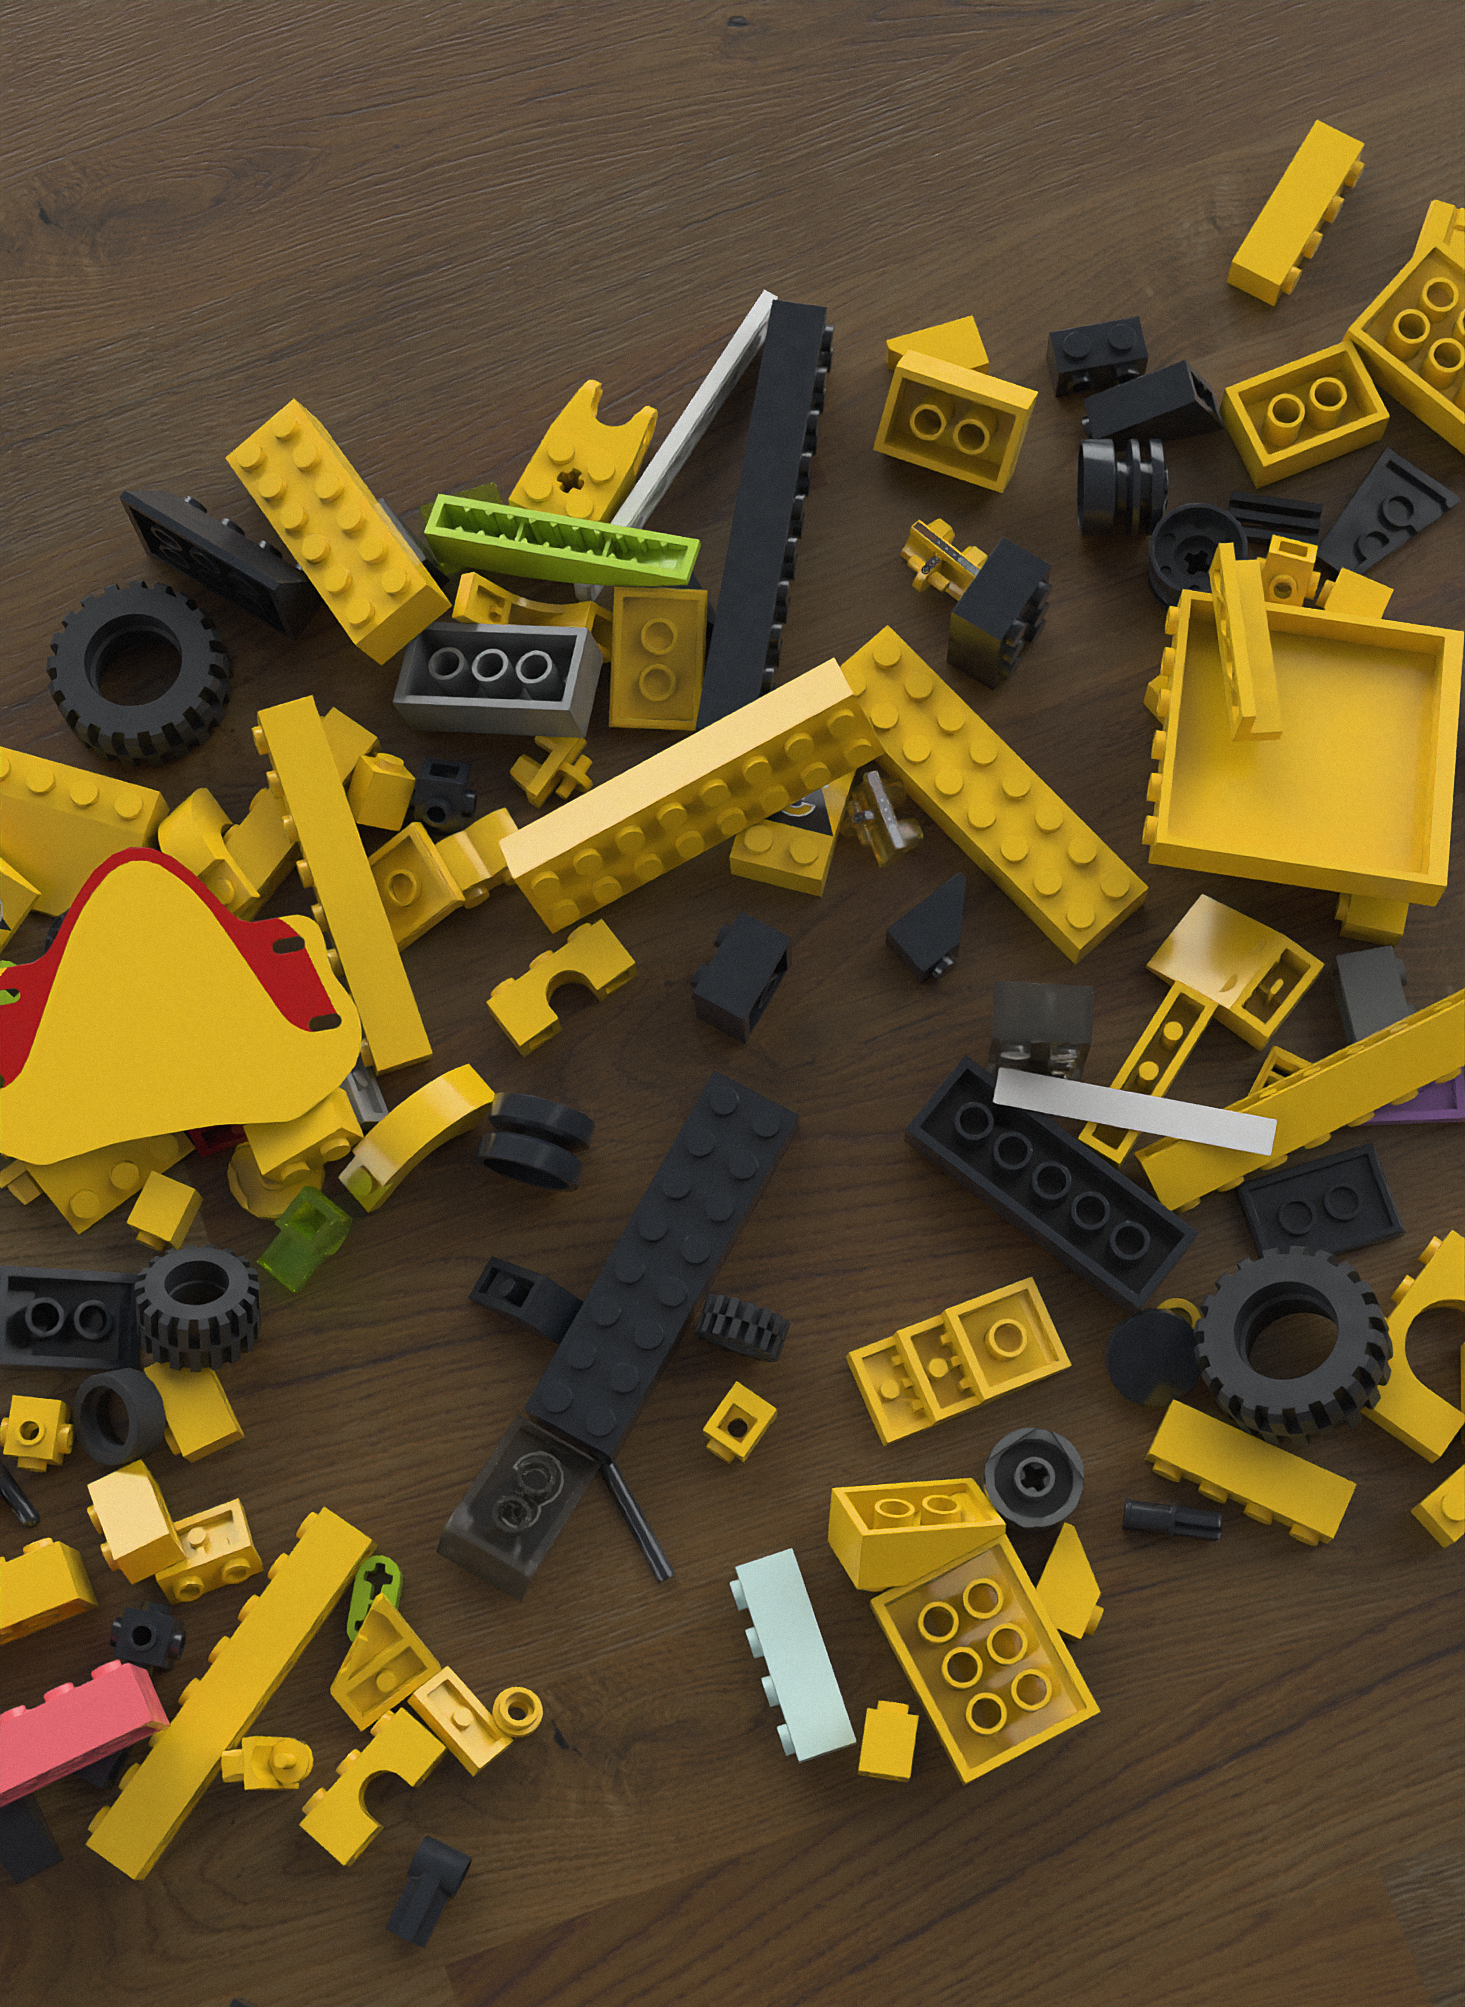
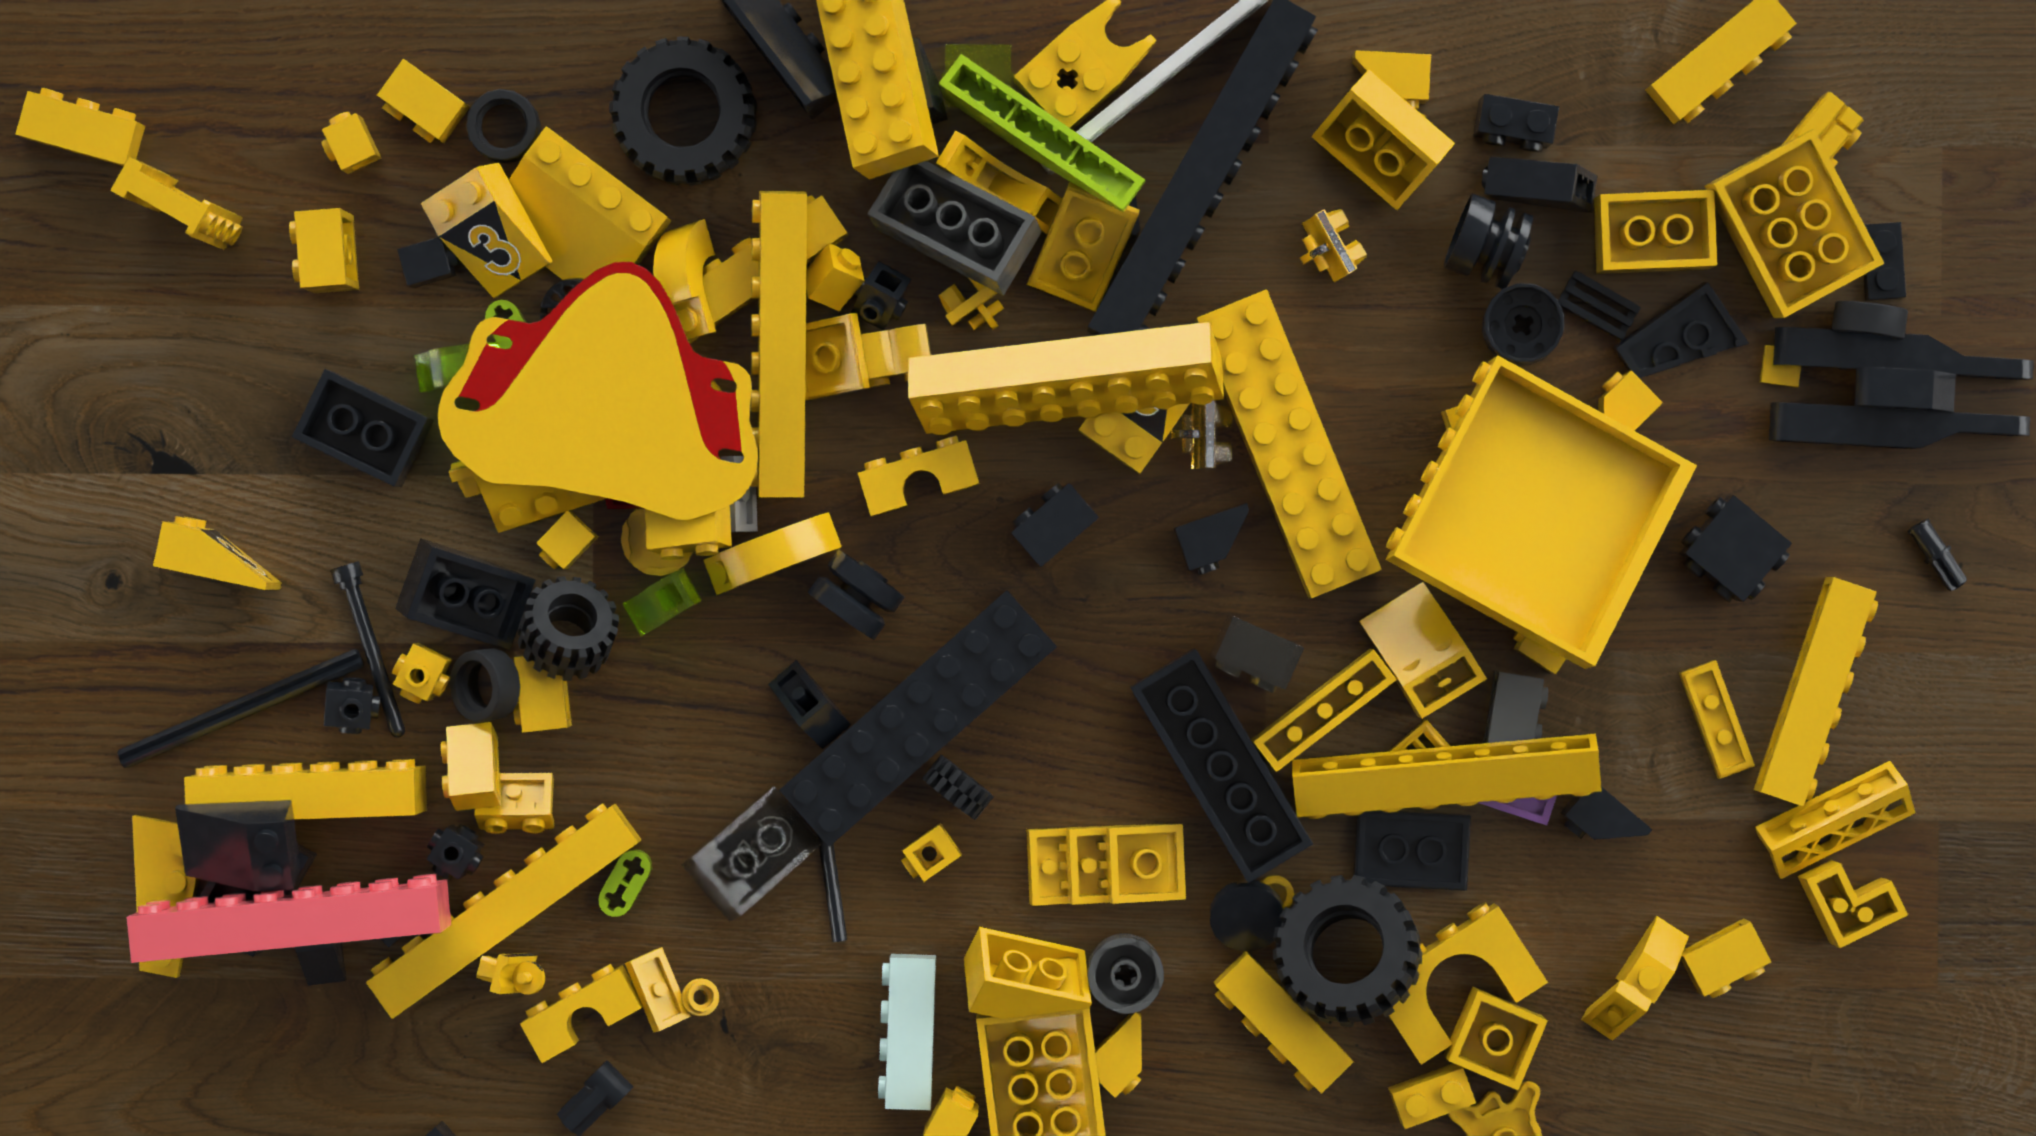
camera: 10 degrees right, 15 degrees up
(382, 1665) = (615, 931): yellow wing -> none
(999, 614) = (1359, 310): black brick -> none
(1135, 1111) = (1302, 738): white sticker -> none
(1172, 1520) = (1214, 1034): black axle -> none
(1245, 647) = (1523, 423): yellow fence -> none
(1289, 572) = (1587, 357): yellow brick -> none

